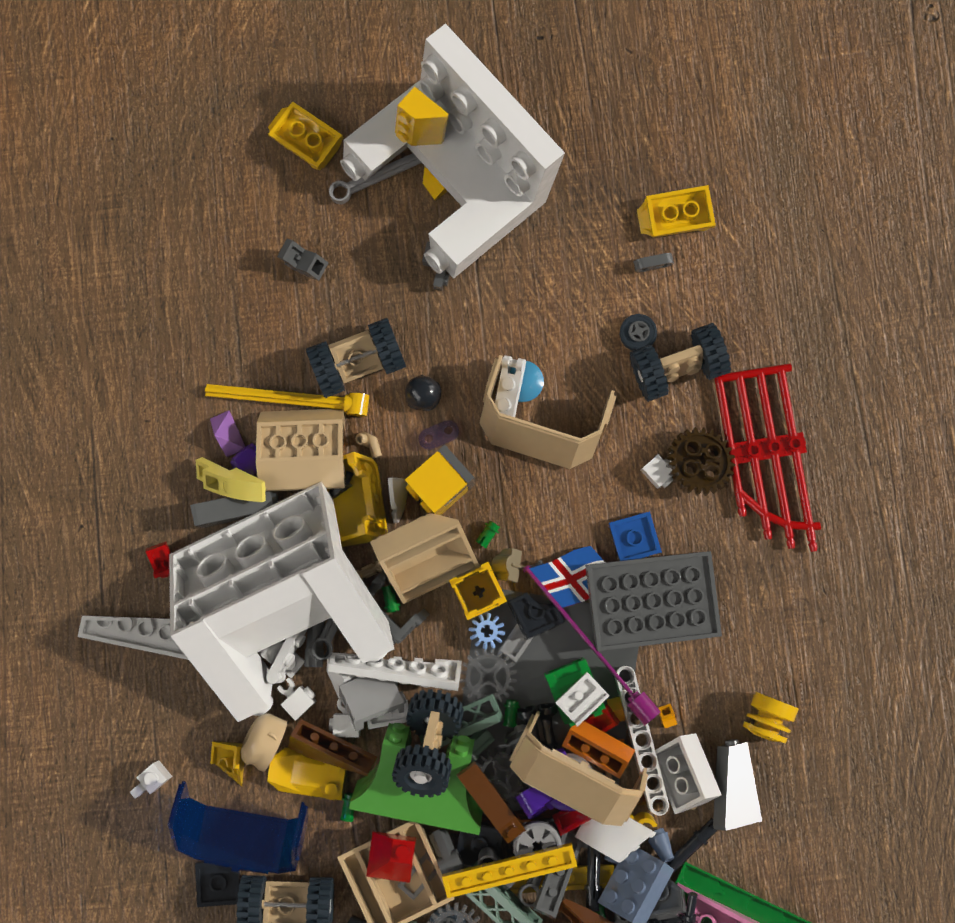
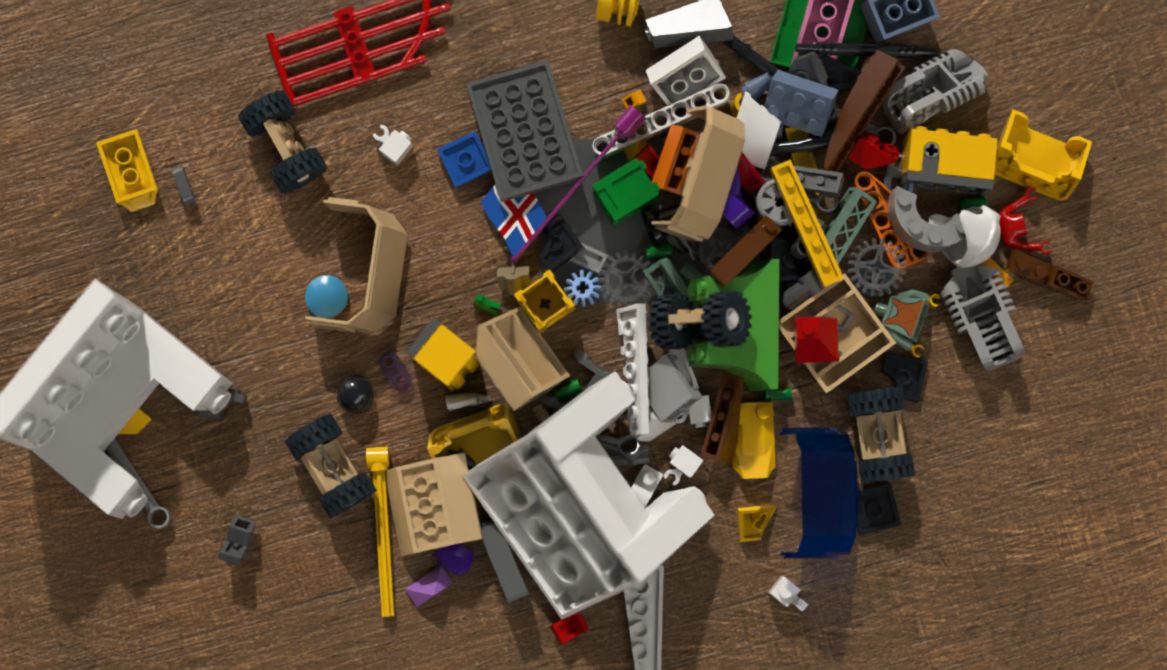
camera: 105 degrees left, 0 degrees up
(230, 483) = (479, 568): light yellow slope -> none
(263, 741) = (728, 486): tan piece -> none
(285, 658) = (644, 481): white plate -> none
(305, 135) = (104, 564): yellow slope -> none
(369, 441) = (413, 439): tan arm -> none
(420, 120) = (78, 435): yellow slope -> none
(510, 385) = (333, 307): white plate -> none
(582, 699) = (631, 180): white plate -> none
(642, 327) = (254, 182): black wheel -> none
(700, 479) = (397, 103): dark brown gear -> none

